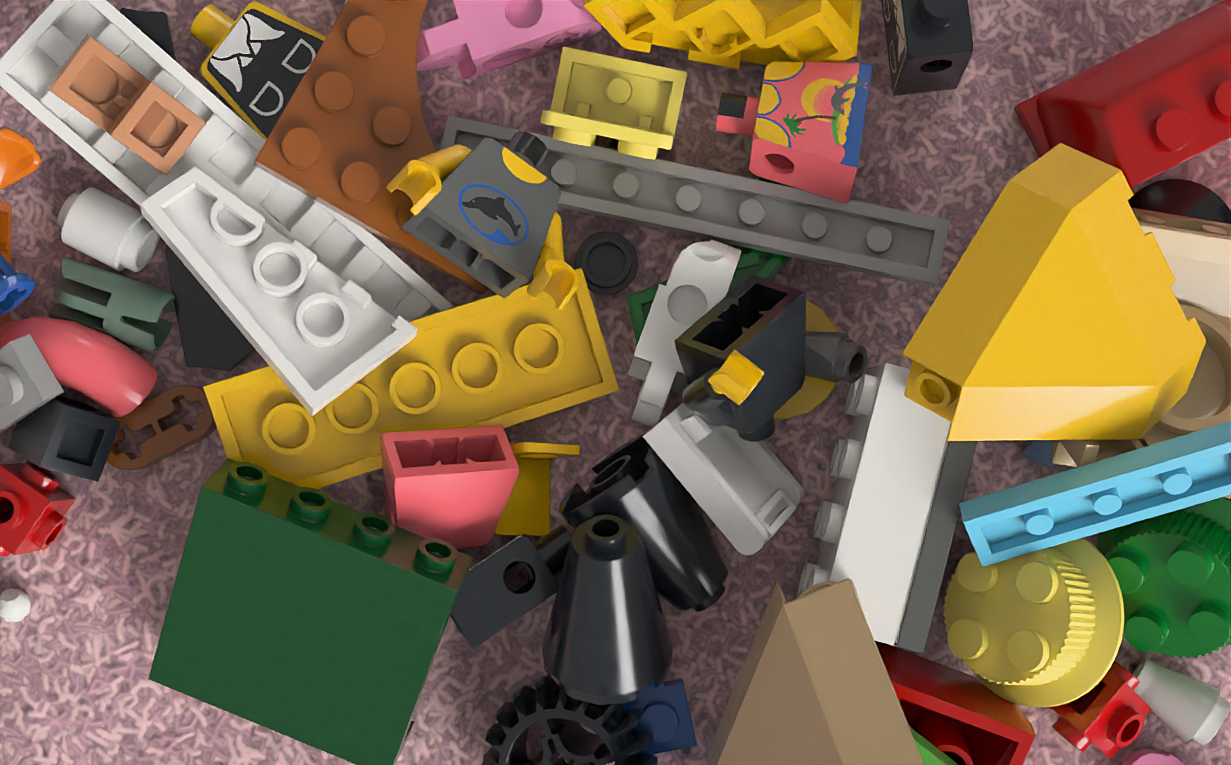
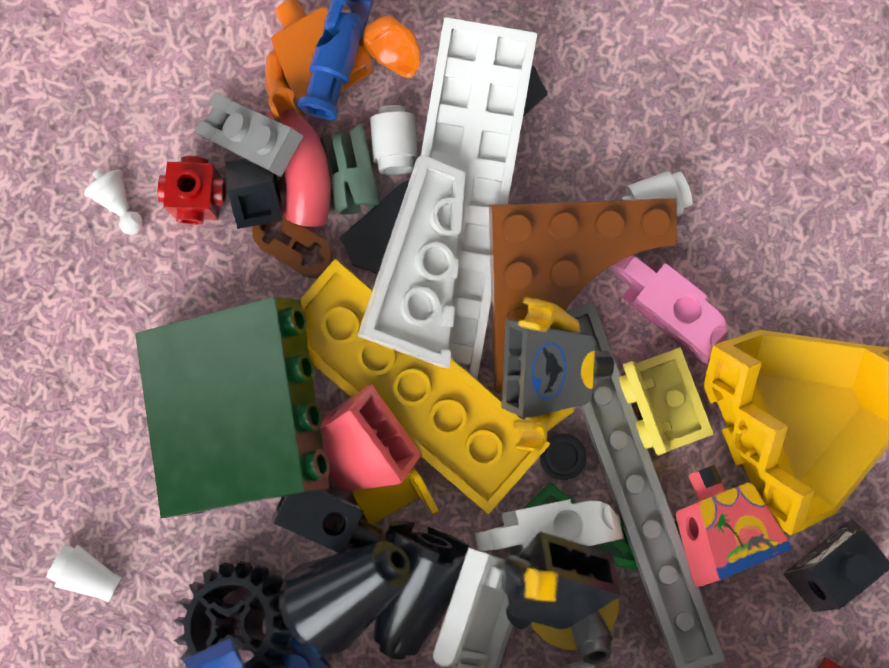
camera: 55 degrees right, 5 degrees down
(126, 105) = (477, 109): nougat slope -> none
(255, 60) = (553, 166): torso -> none

